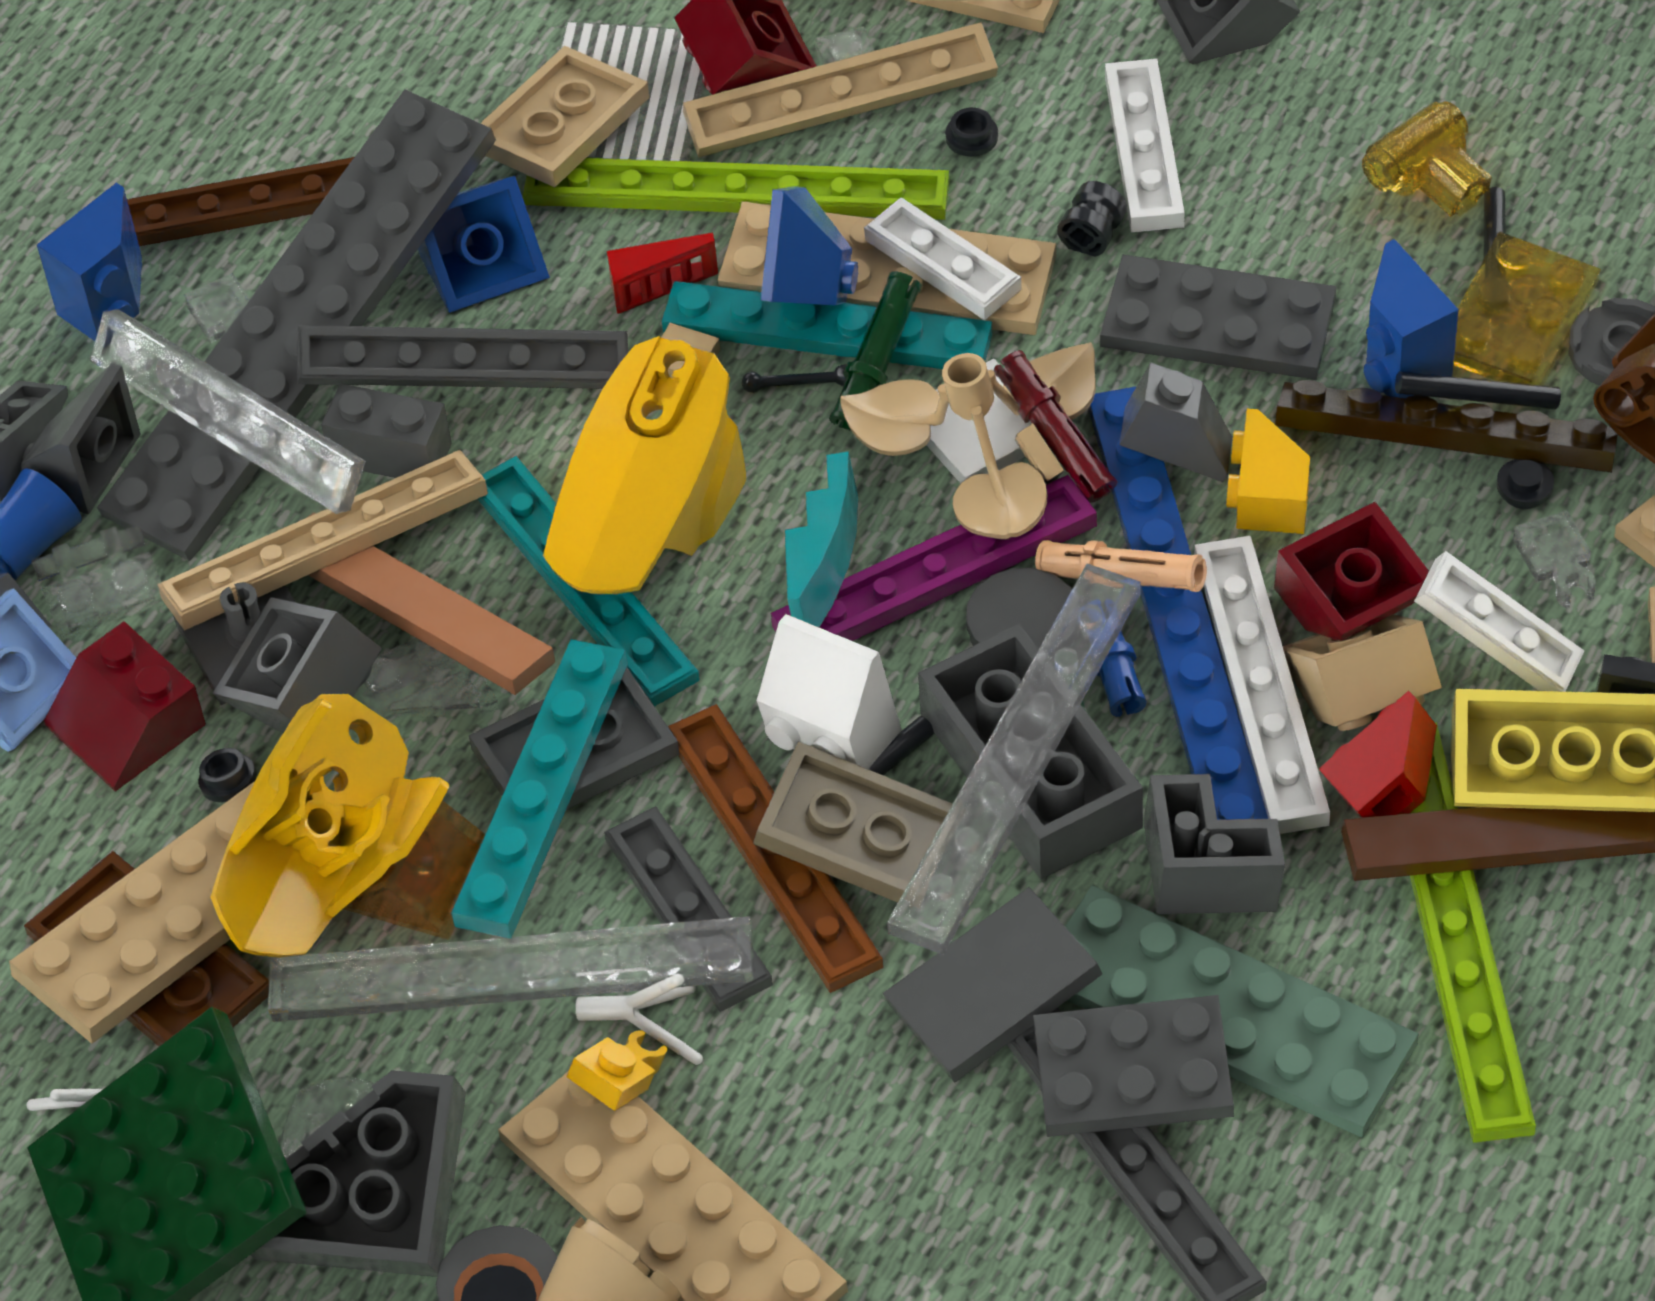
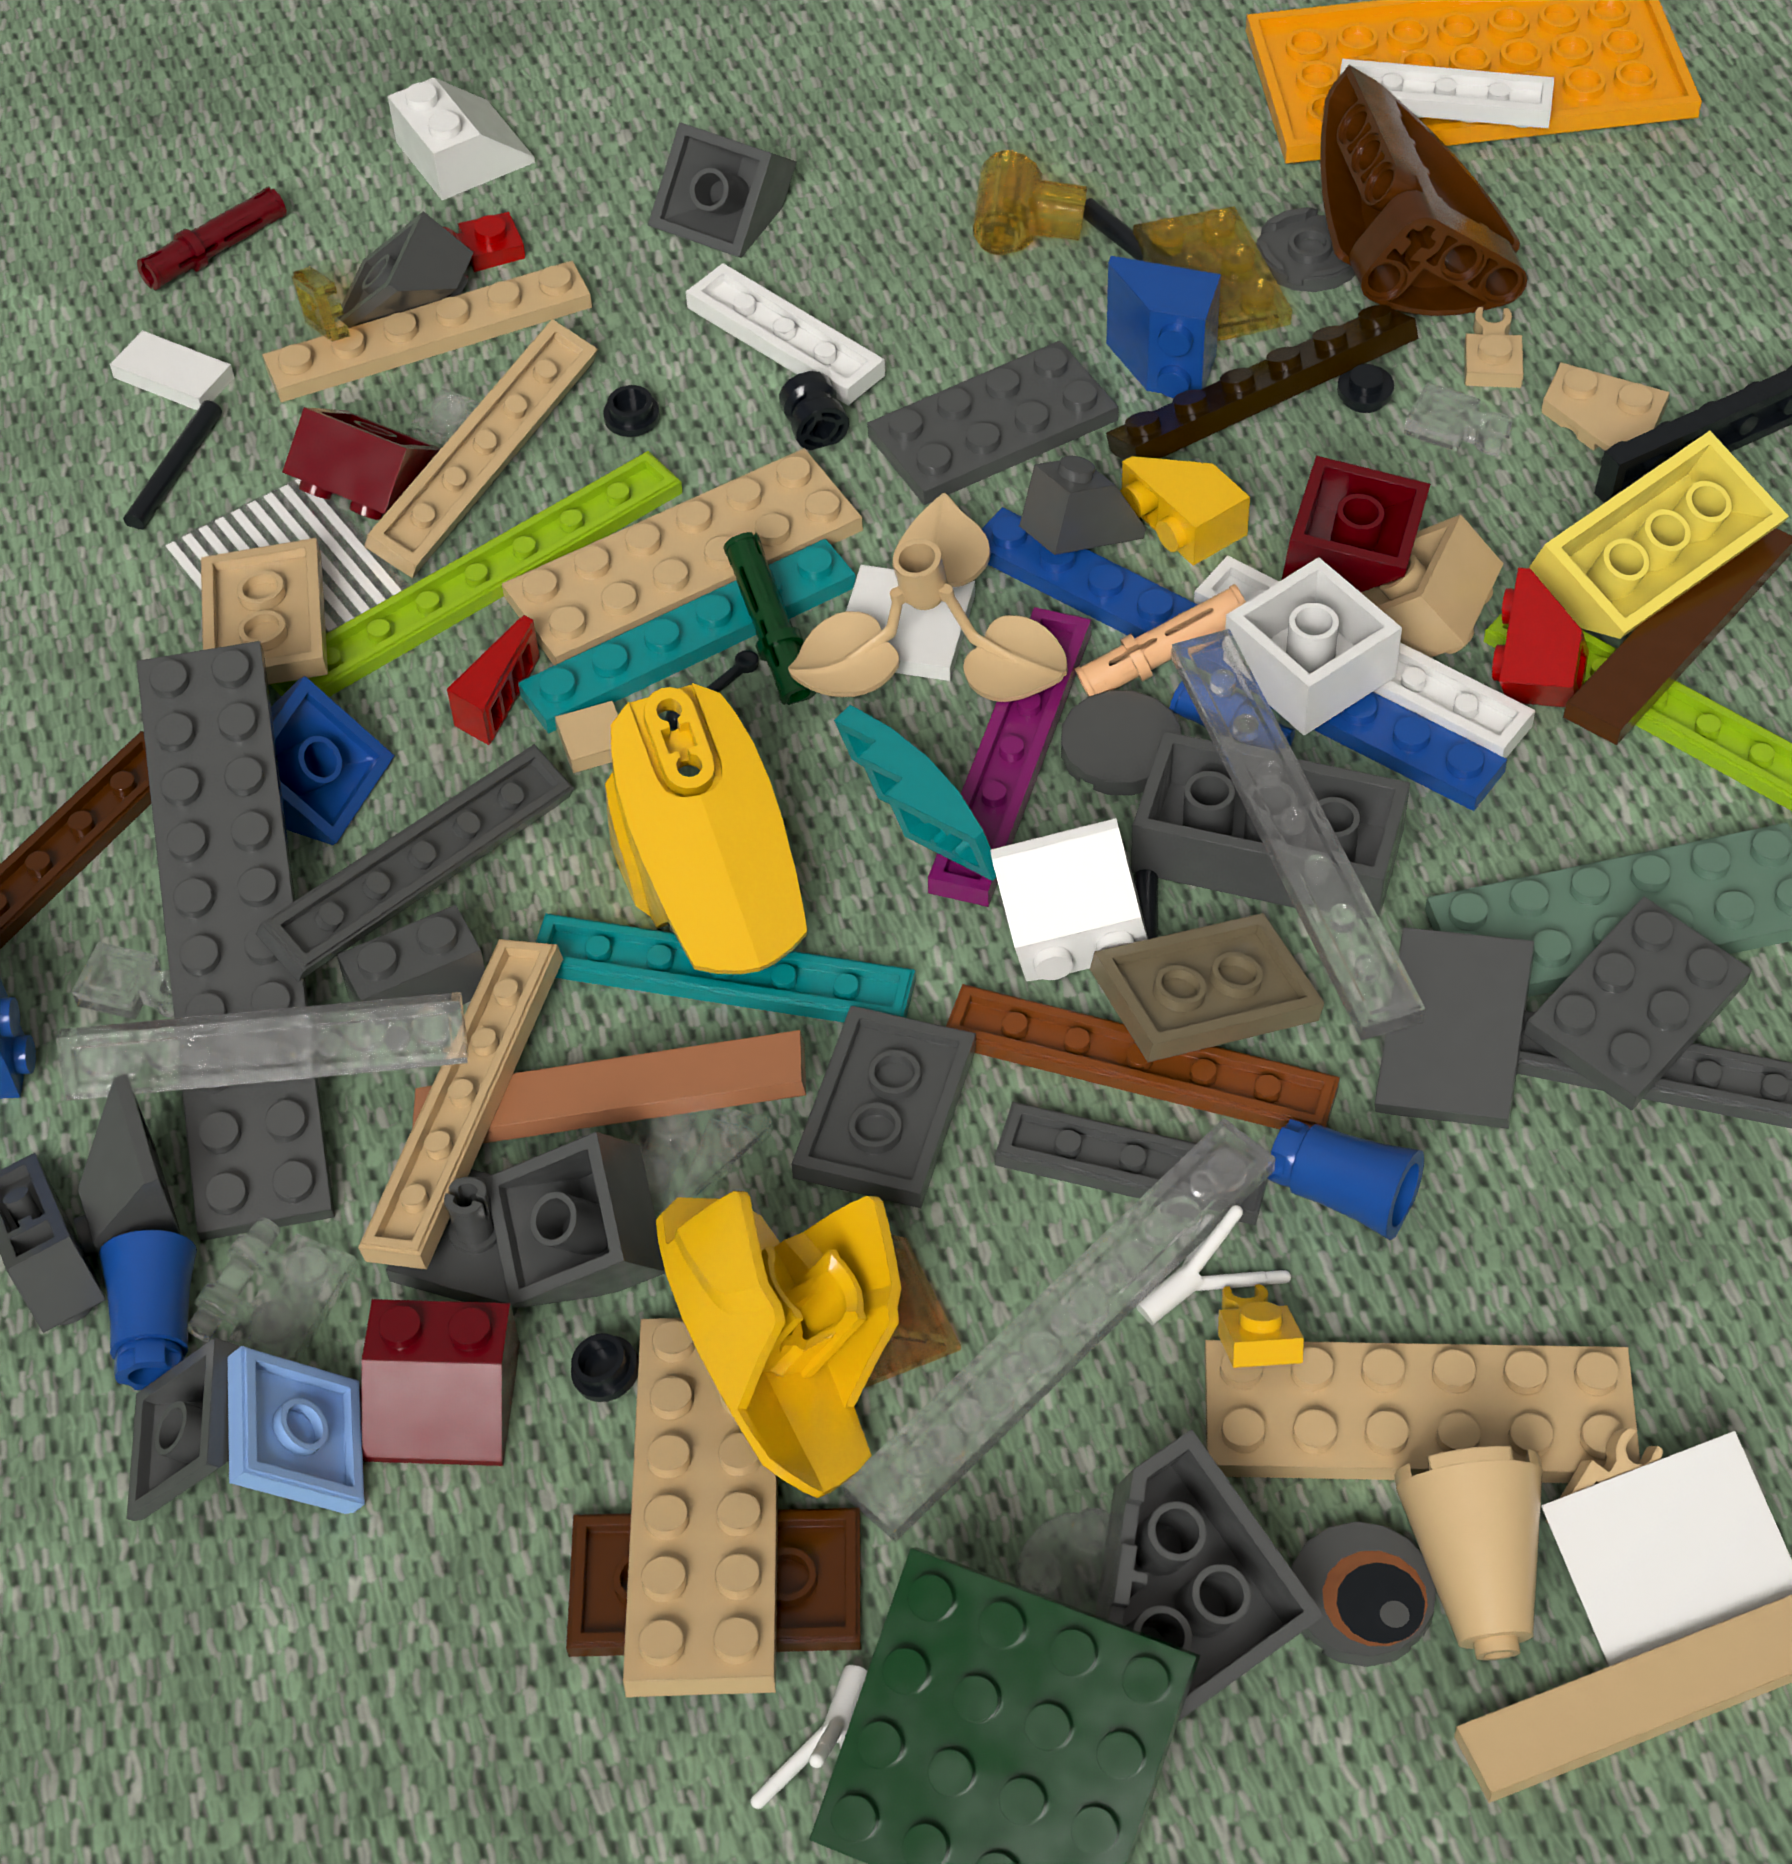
camera: 45 degrees left, 0 degrees up
(539, 789) = (920, 1158): teal plate -> none
(801, 1025) = (1349, 1174): none -> blue plant
(805, 253) = (639, 571): blue slope -> none
(943, 258) = (725, 511): white tile -> none
(1038, 452) = (990, 600): tan tile -> none
(1042, 408) = (1003, 577): dark red pin -> none
(1196, 639) = (1315, 644): none -> white brick
(1207, 861) = (1489, 810): dark grey brick -> none
(1477, 390) = (1259, 342): black bar -> none
(1498, 625) = (1492, 489): white tile -> none

